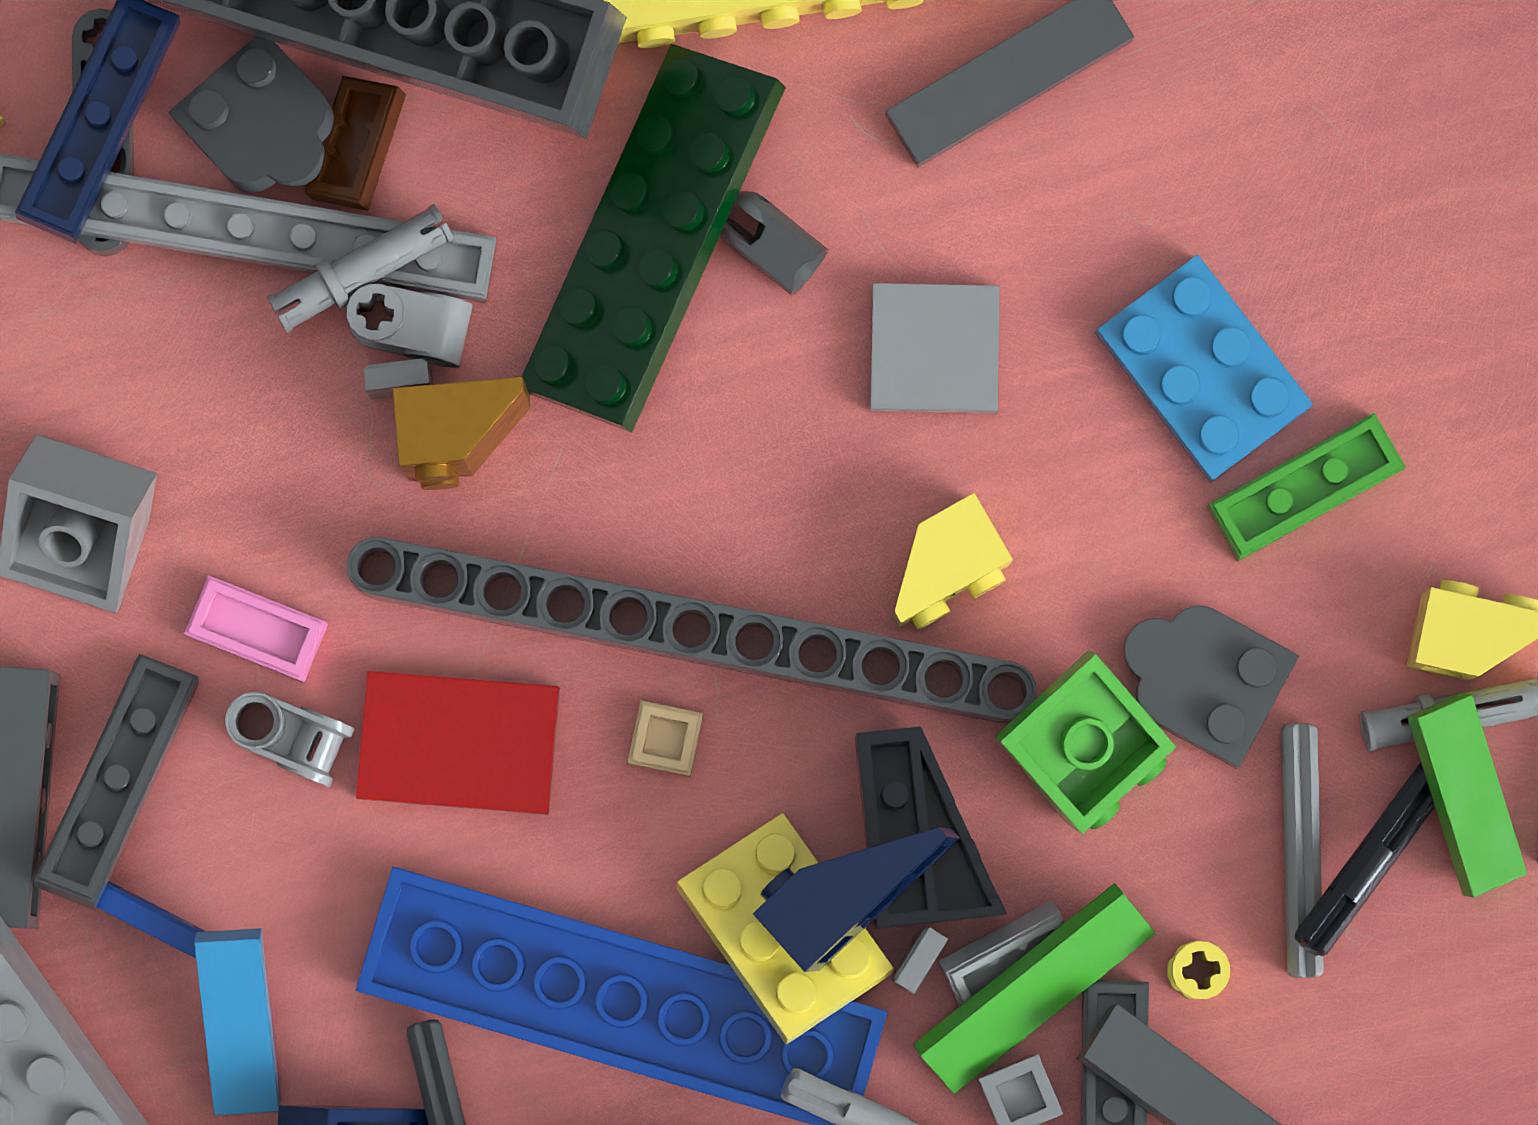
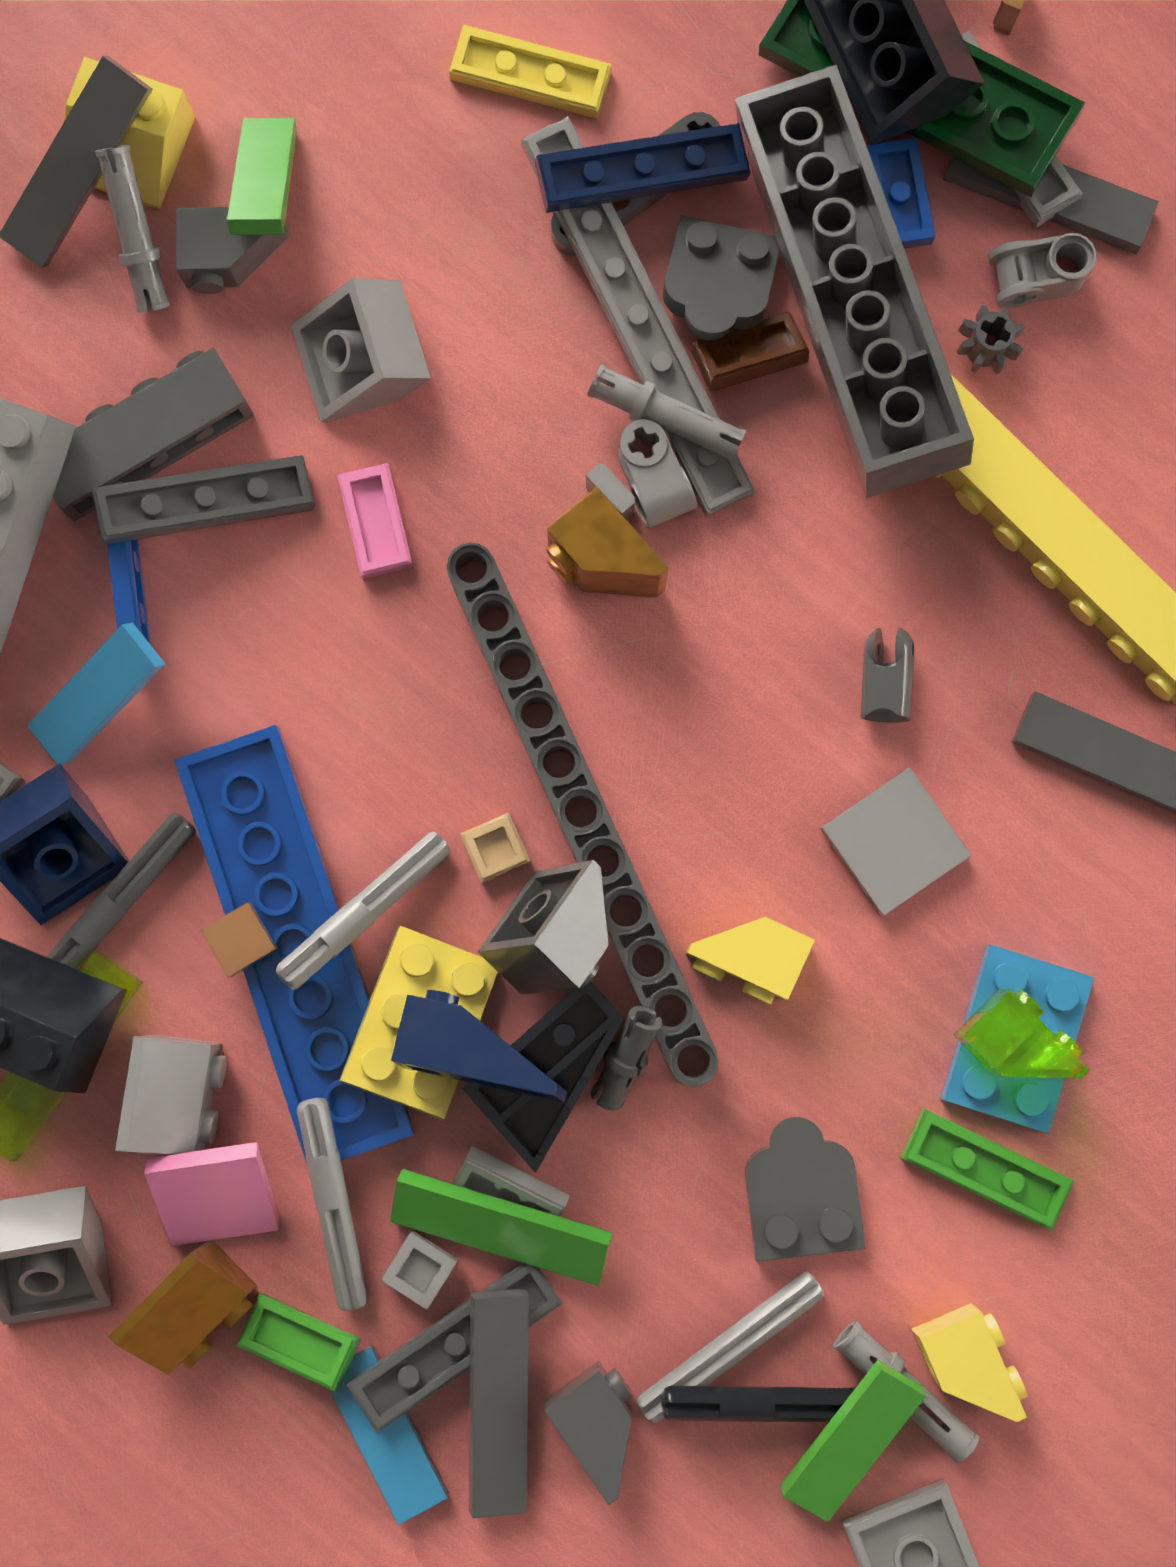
camera: 55 degrees right, 0 degrees up
(291, 736) = (316, 601): light grey piece -> none
(457, 742) = (393, 710): red tile -> none
(580, 1047) = (239, 939): none -> medium nougat tile
(637, 907) = (362, 911): none -> light grey axle
(652, 236) = (832, 594): dark green plate -> none
(787, 737) = (552, 931): none -> dark grey slope
(919, 959) = (464, 1132): light grey tile -> none
(959, 753) = (626, 1058): none -> dark grey pin
(1086, 744) = (696, 1143): bright green plate -> none
(1202, 374) = (1016, 1043): none -> clear neon green slope
(1207, 953) = (594, 1351): light yellow bush -> none
(1283, 1027) = (595, 1424): none -> dark grey slope

